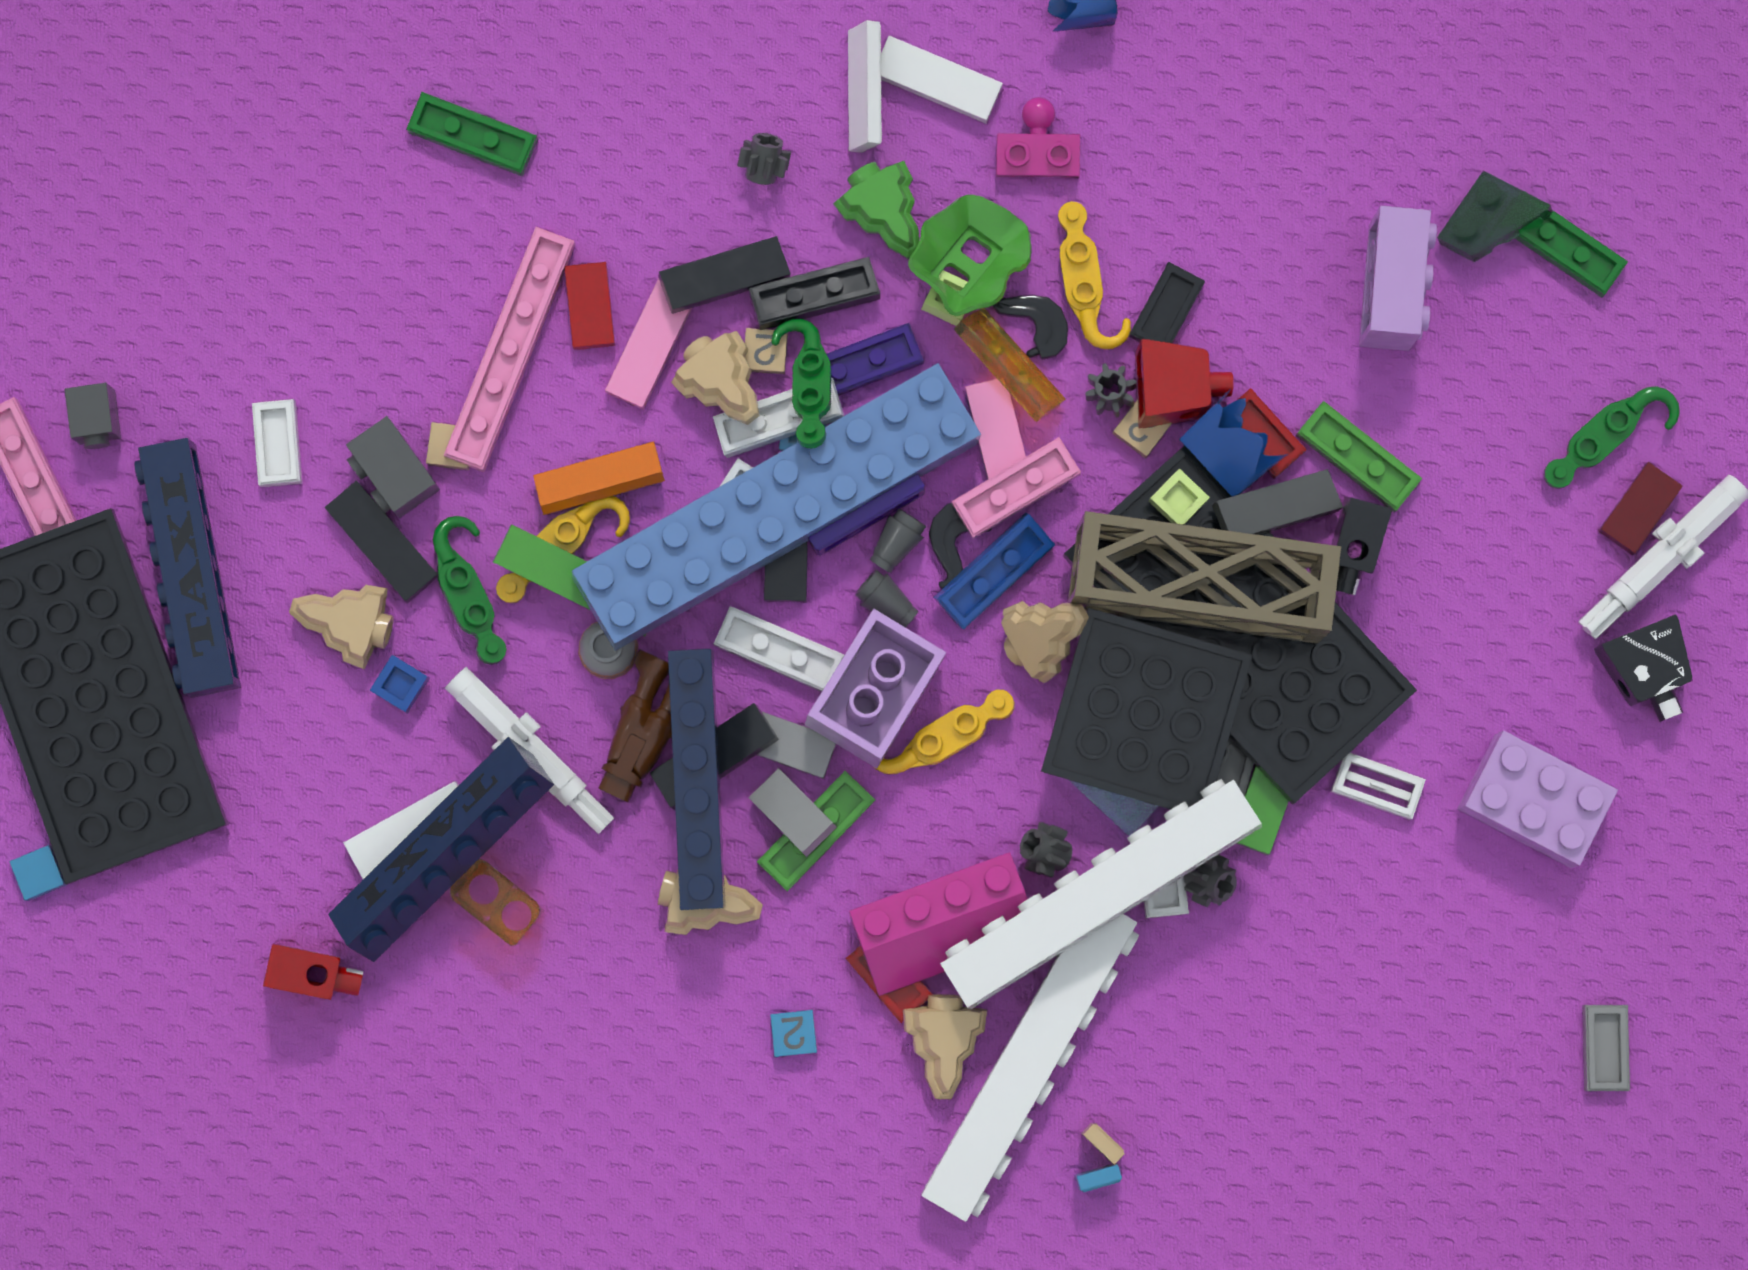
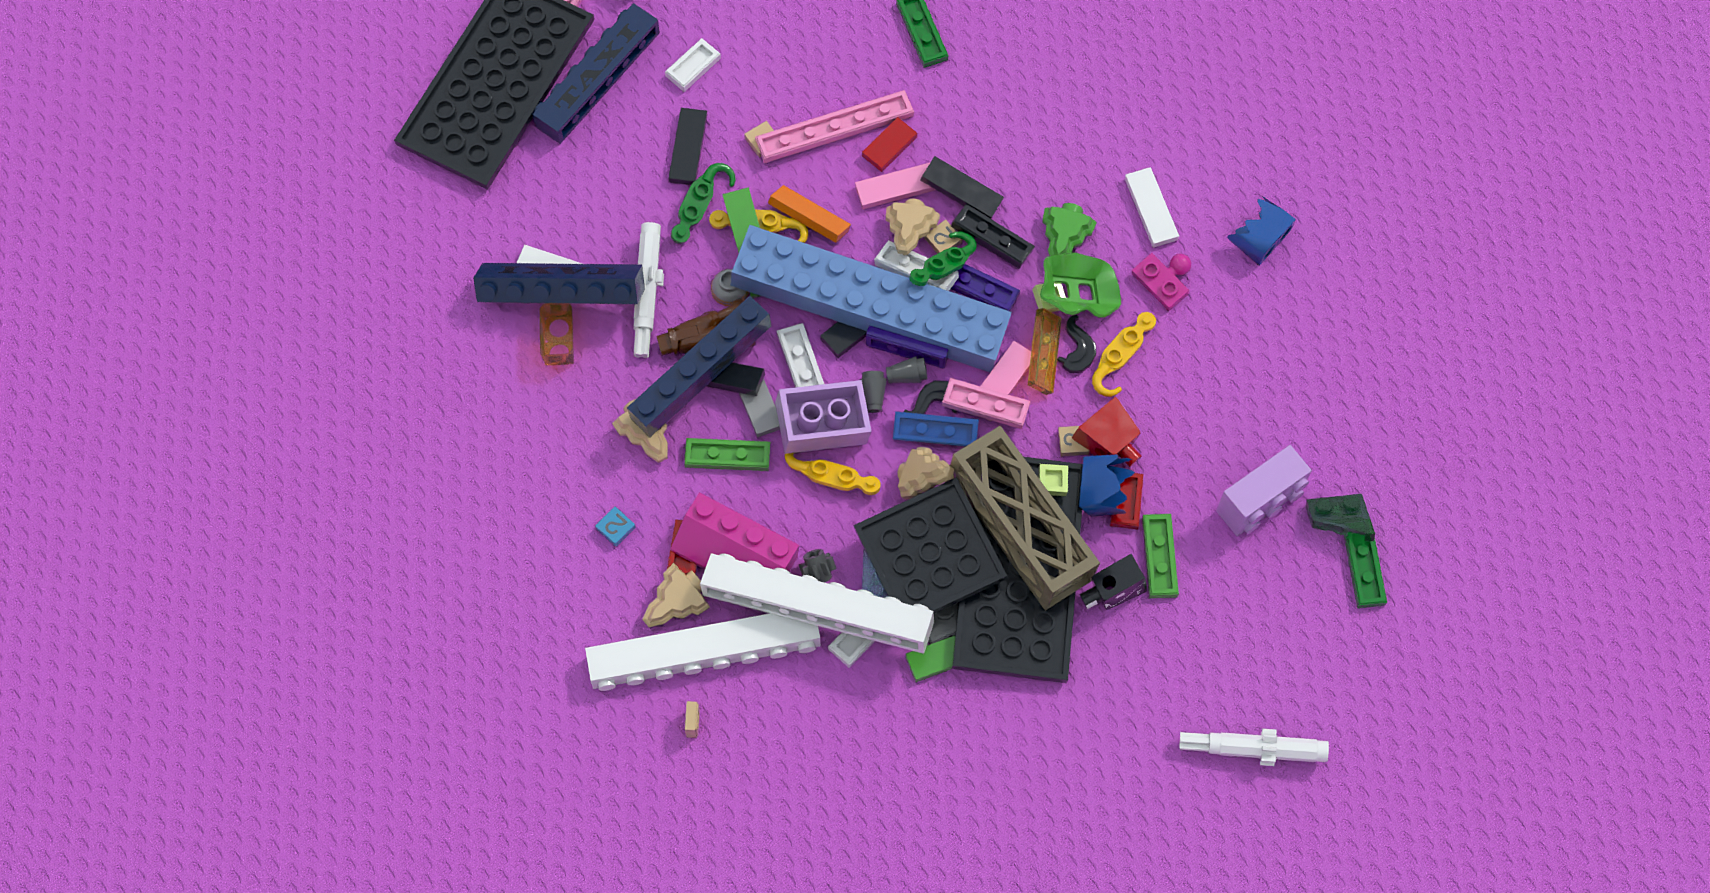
camera: 45 degrees right, 15 degrees down
(37, 873) = (388, 126): dark azure tile -> none
(289, 967) = (441, 269): red torso -> none
(348, 621) = (635, 162): tan rock -> none
(391, 467) = (728, 120): dark grey brick -> none
(399, 684) = (625, 207): blue plate -> none
(764, 158) = (1035, 159): dark grey gear -> none
(792, 812) = (726, 432): light grey tile -> none
(864, 86) = (1114, 176): white tile -> none
(1098, 1177) = (672, 732): dark azure tile -> none
(1114, 400) = (1077, 407): dark grey gear -> none
(1167, 305) = (1147, 402): black tile -> none
(1211, 882) = (875, 658): dark grey gear -> none
(1279, 505) = (1098, 533): dark grey tile -> none
(1375, 802) = (1011, 728): white tile -> none
(1537, 799) = (1068, 787): lavender brick -> none
(1606, 433) = (1290, 665): green piece -> none
(1640, 508) = (1274, 714): dark red tile -> none
(1649, 665) = (1191, 786): black torso -> none

